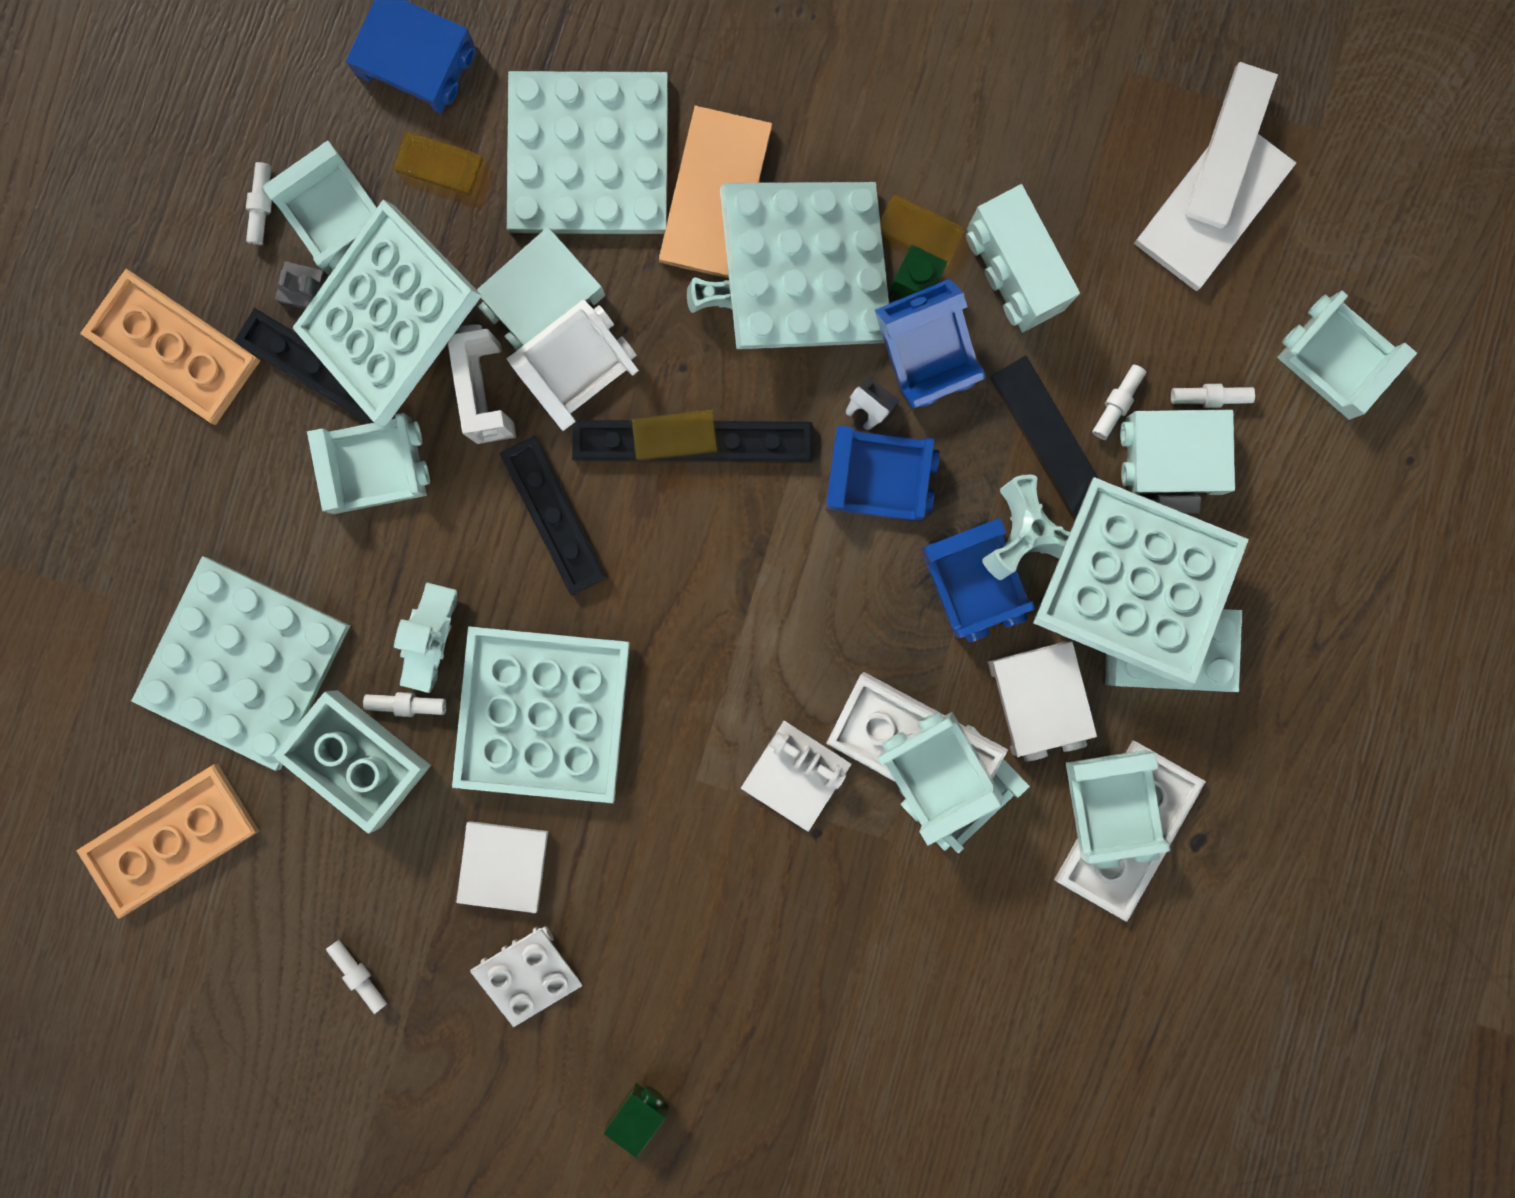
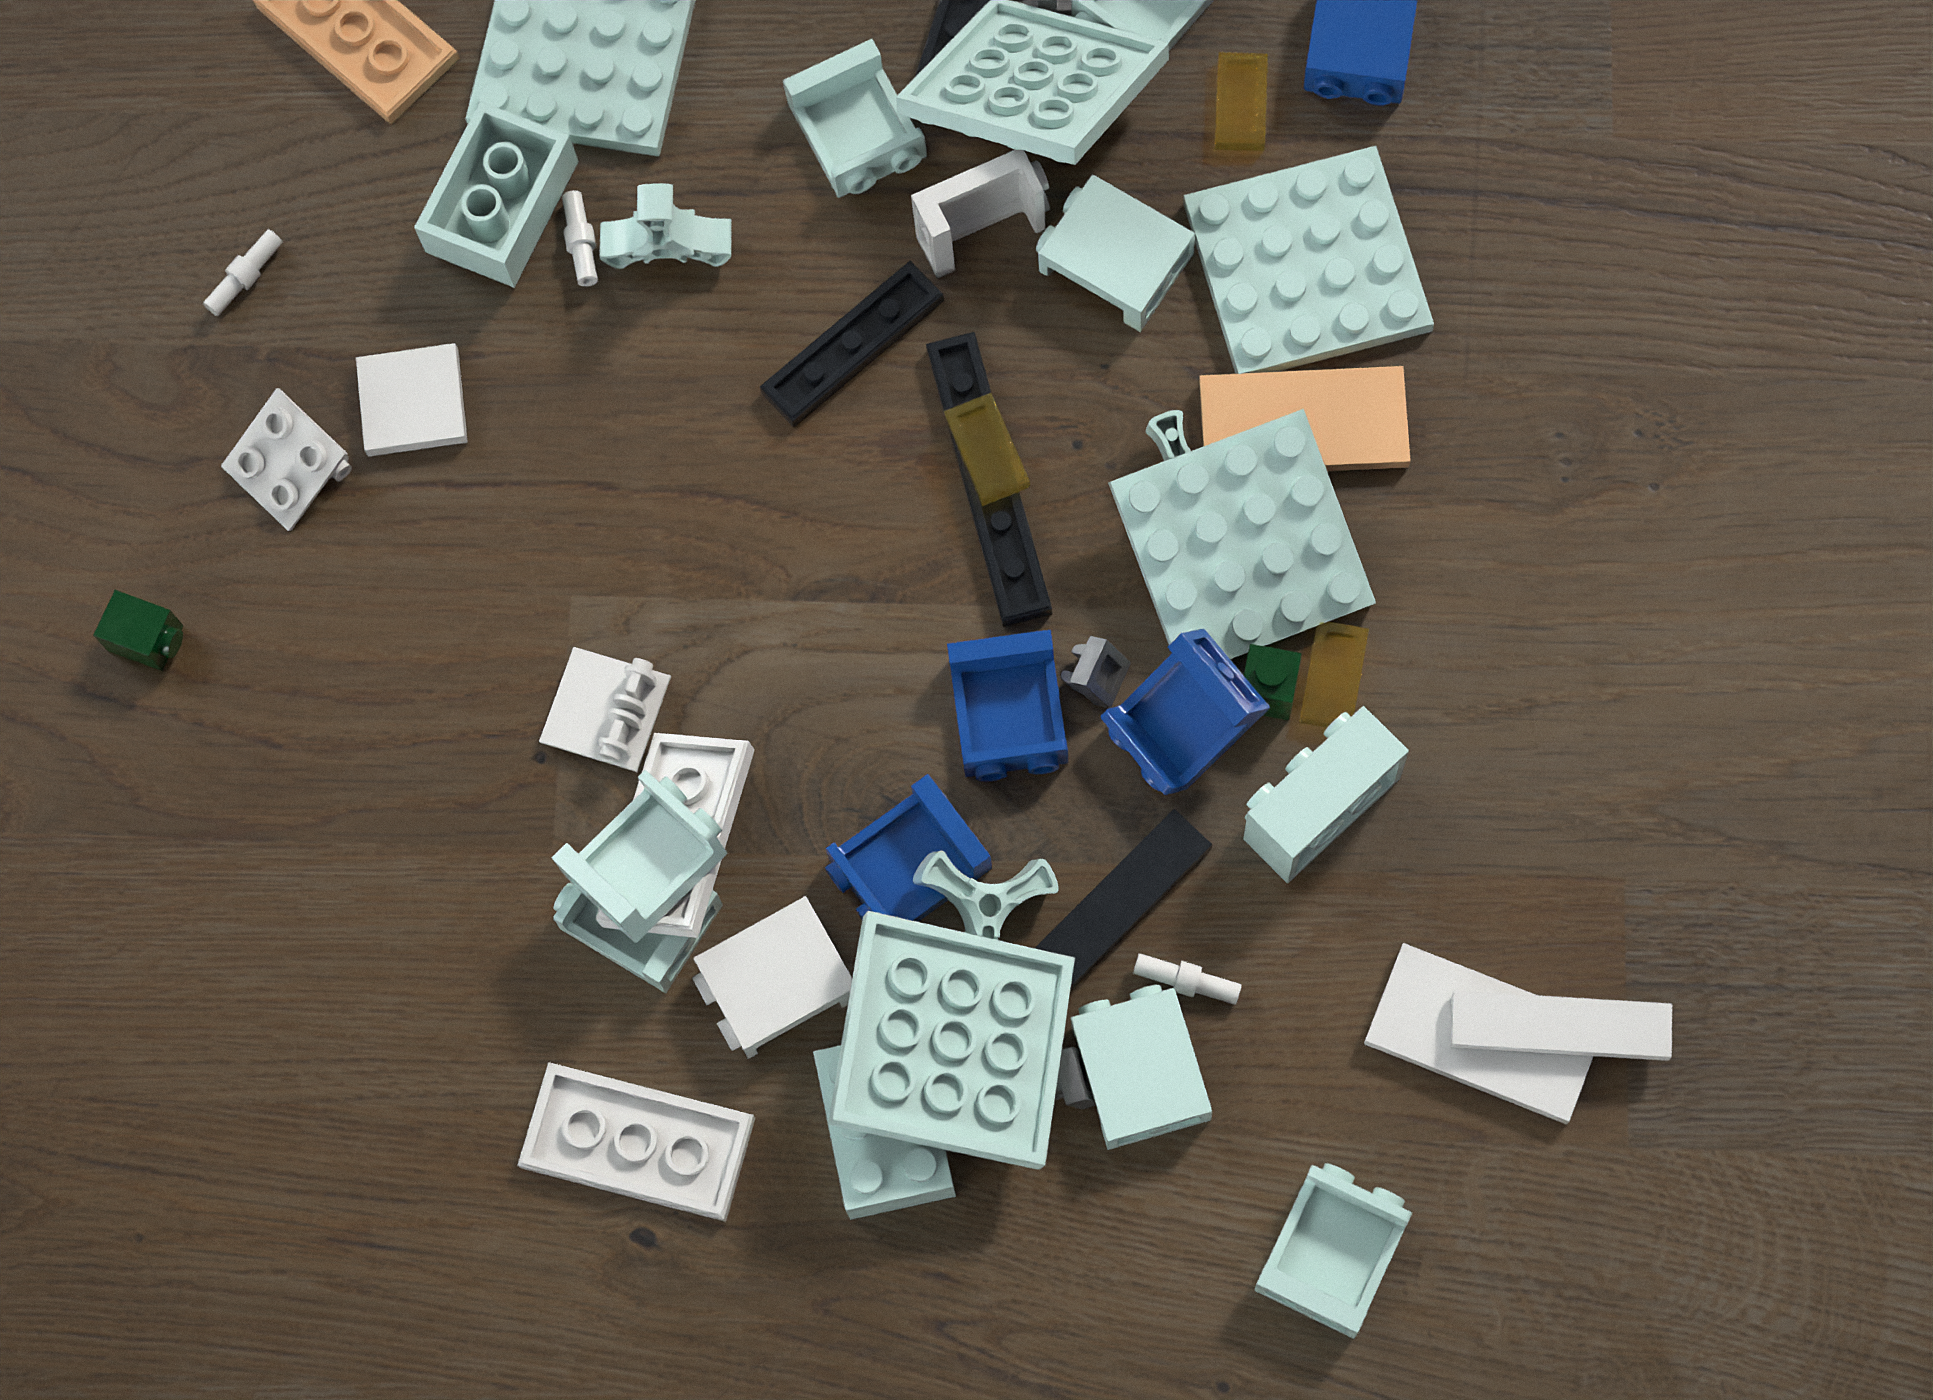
camera: 80 degrees right, 15 degrees down
(541, 714) = (606, 392): light aqua plate -> none
(572, 361) = (1038, 305): white panel -> none
(1116, 808) = (659, 1105): light aqua panel -> none
(1212, 395) = (1230, 1096): white bar -> none

